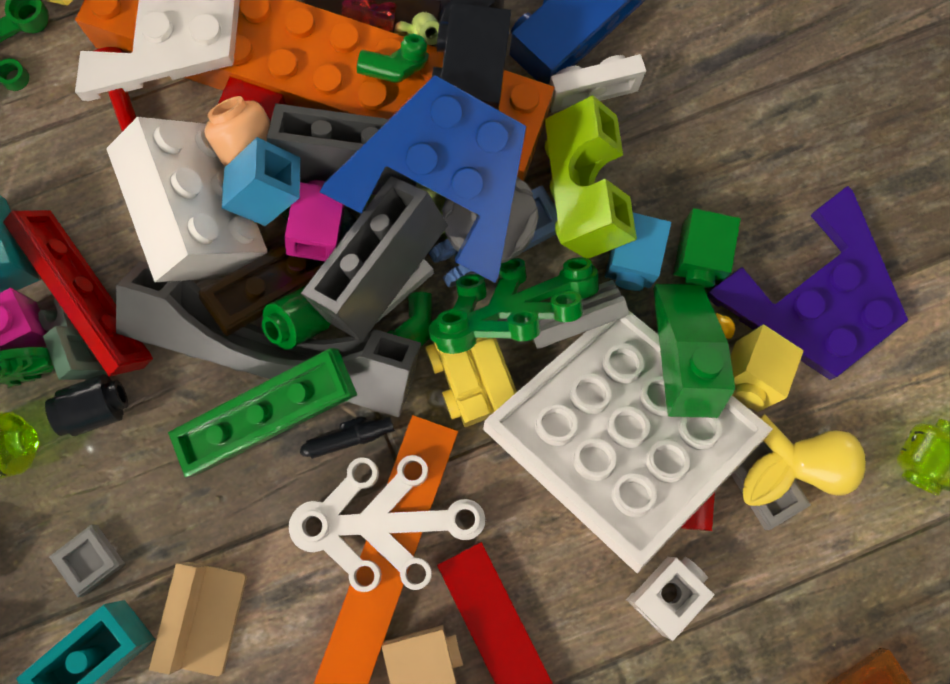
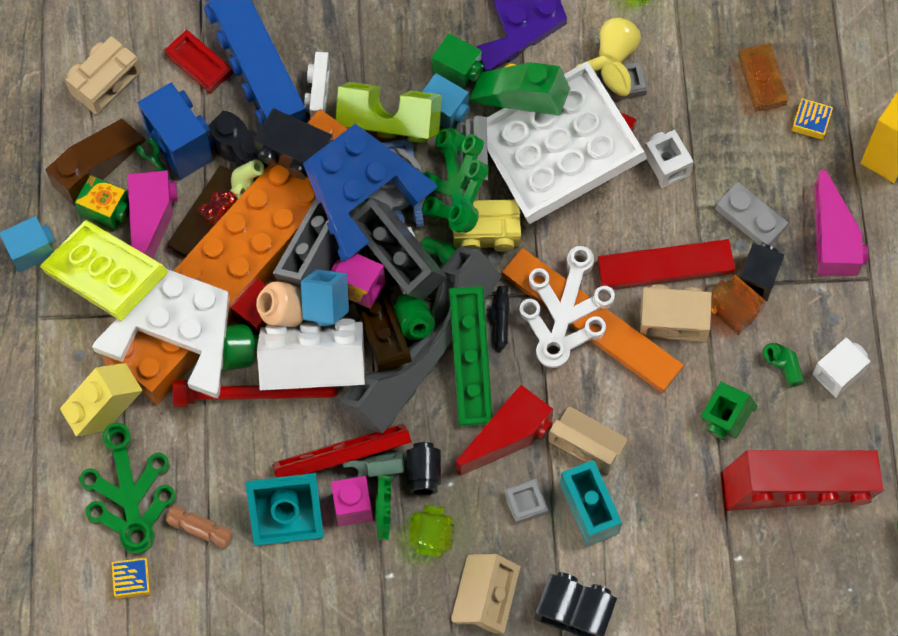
camera: 65 degrees left, 10 degrees down
(176, 508) = (510, 430): none -> red slope
(184, 99) = (239, 347): none -> green head
(397, 66) = (273, 191): green arm -> none
(763, 368) = (548, 49): light yellow brick -> none

